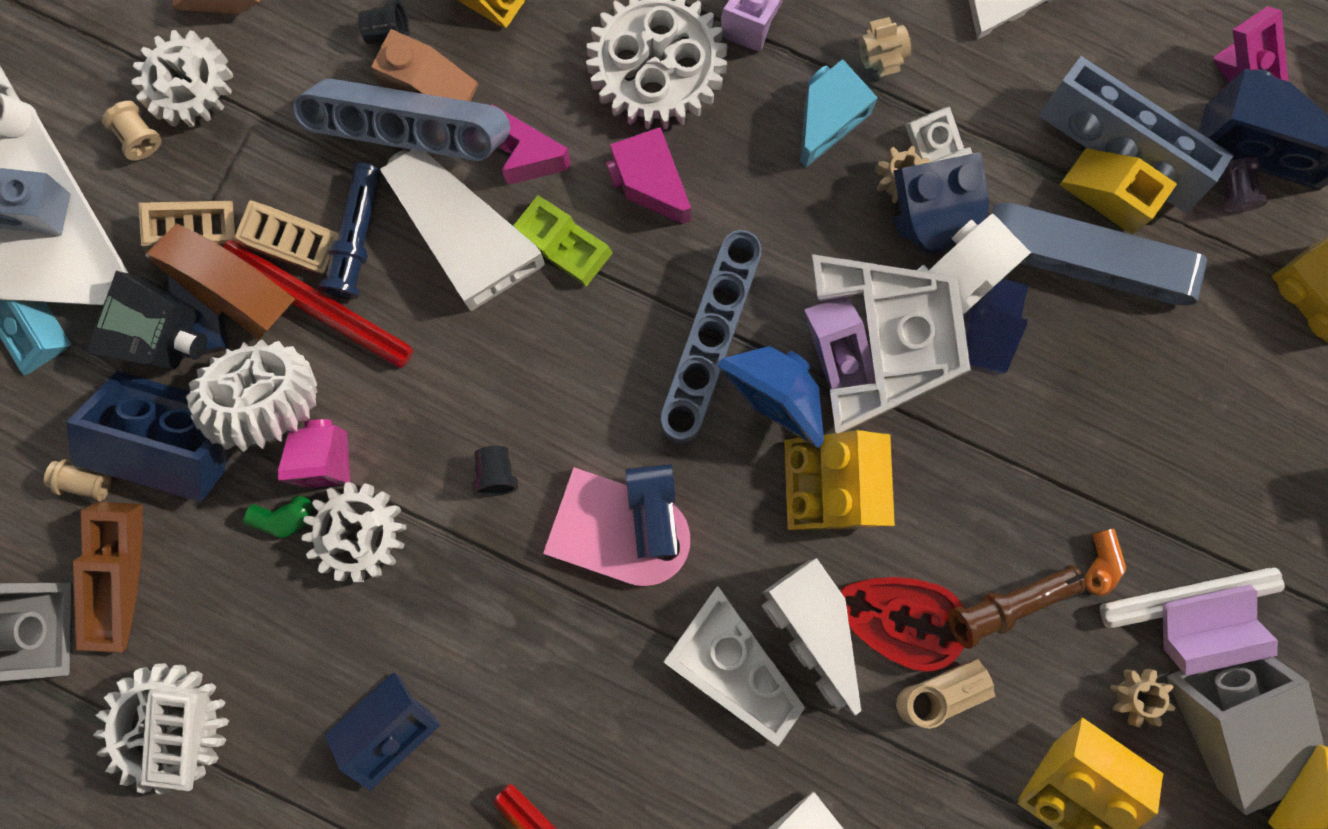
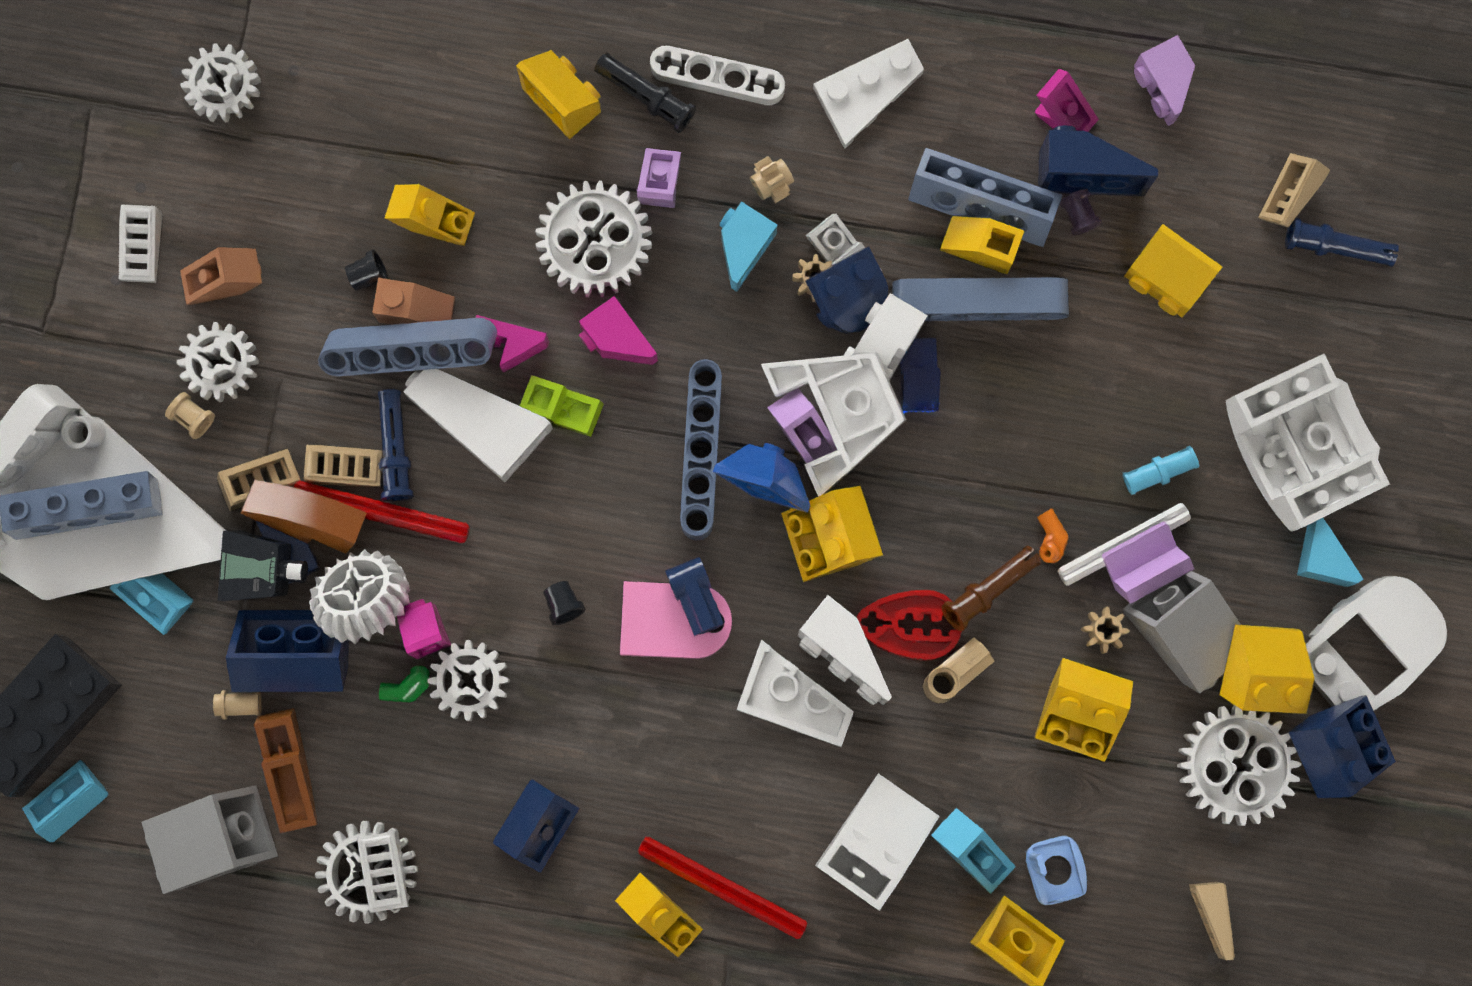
camera: 20 degrees left, 0 degrees up
(1261, 520) = (1160, 470): none -> medium azure pin

